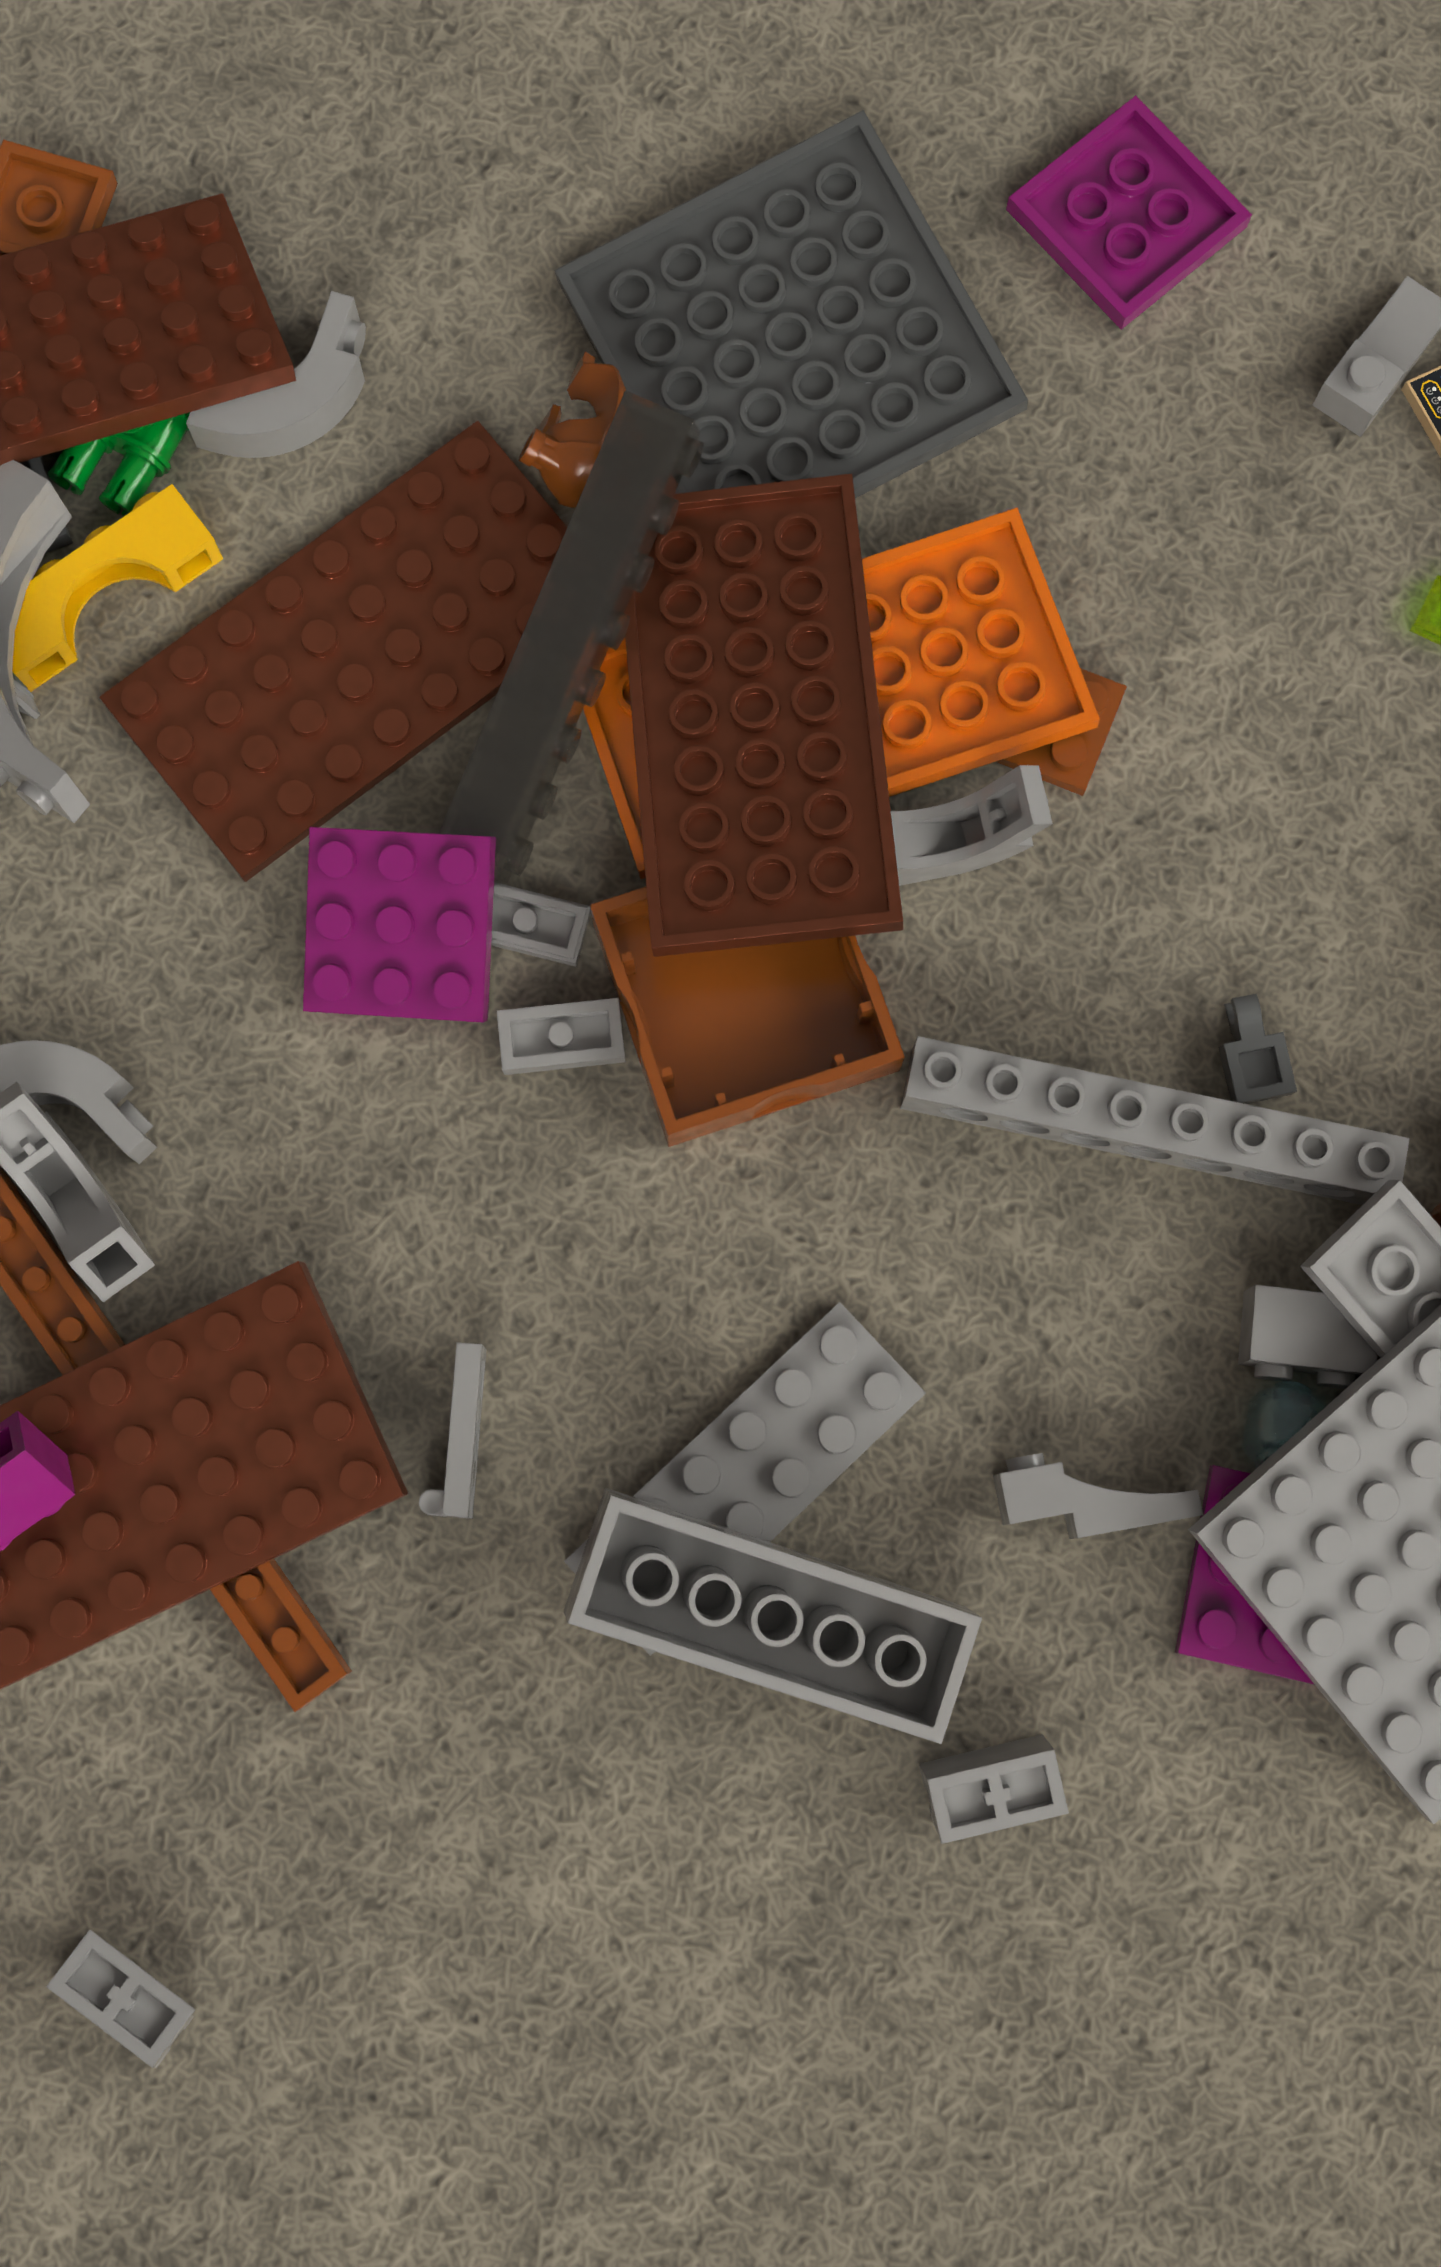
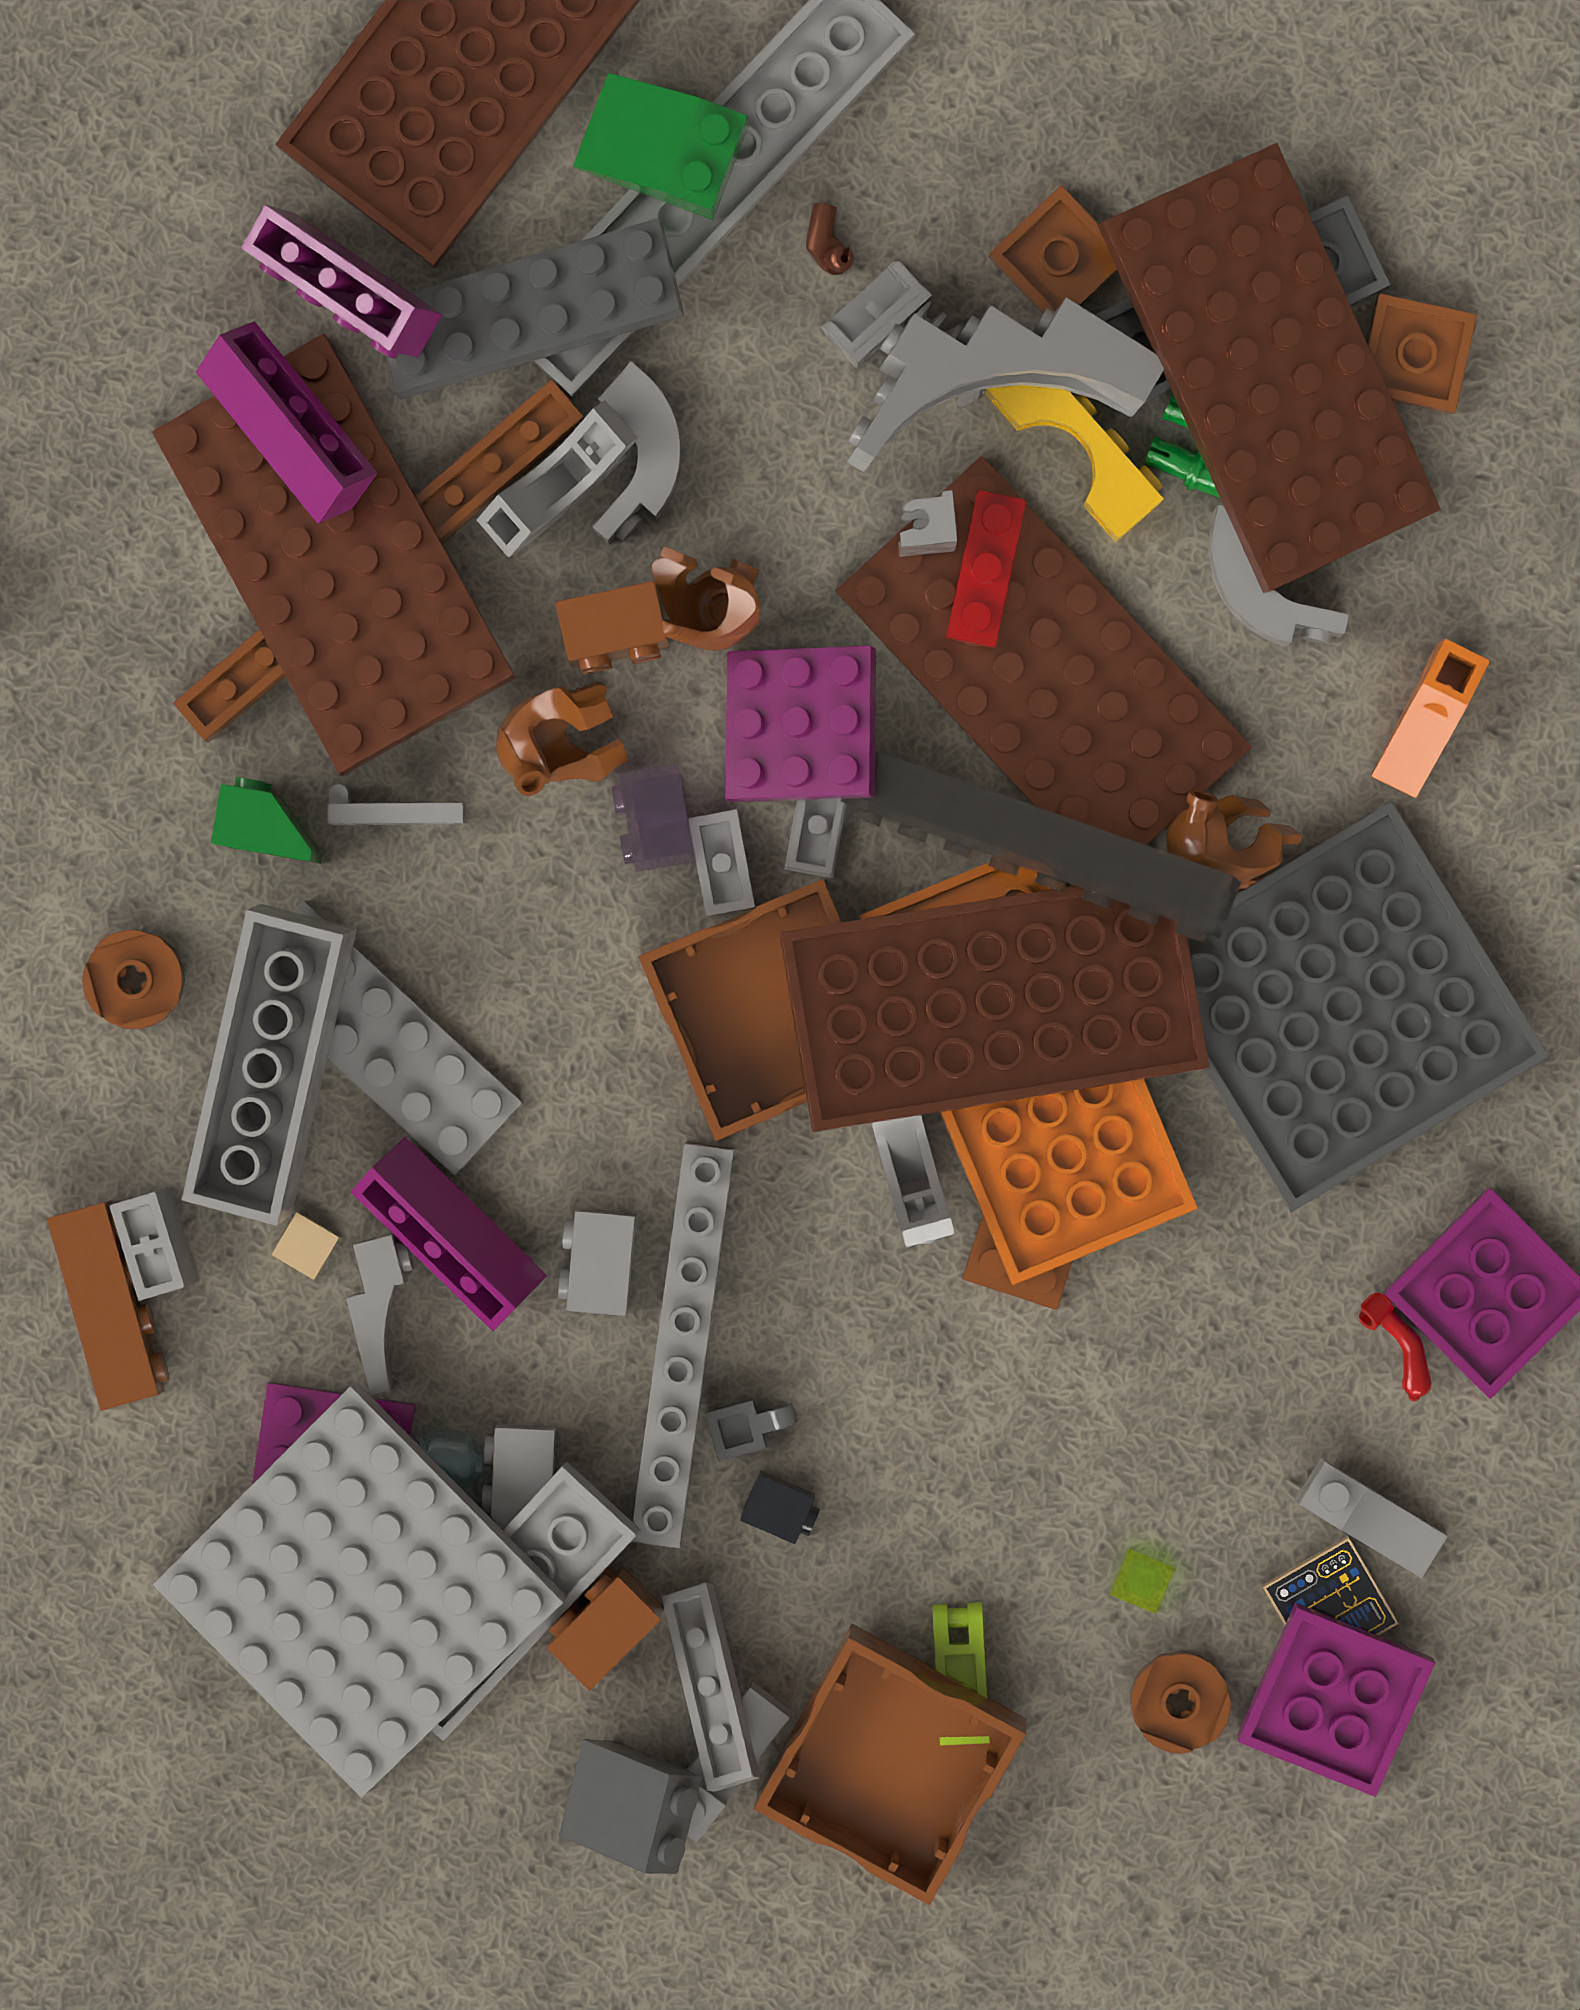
camera: 90 degrees right, 10 degrees up
(172, 733) = (933, 526): none -> light grey hinge
(233, 694) = (986, 569): none -> red plate
(241, 1010) = (710, 610): none -> dark orange piece
(253, 1137) = (612, 627): none -> dark orange brick
(392, 1252) = (535, 742): none -> dark orange piece
(456, 217) = (1430, 717): none -> slope
(459, 1603) = (260, 822): none -> green slope
(498, 1110) = (655, 818): none -> clear purple brick
(626, 1822) = (109, 964): none -> dark orange plate
(994, 1401) = (492, 1269): none -> magenta brick
(1004, 1590) = (306, 1245): none -> tan tile
(1045, 1219) = (599, 1262): none -> light grey brick
(1072, 1857) = (106, 1307): none -> dark orange brick
(1147, 330) = (1378, 1311): none -> red piece
(1356, 1023) = (780, 1508): none -> black brick

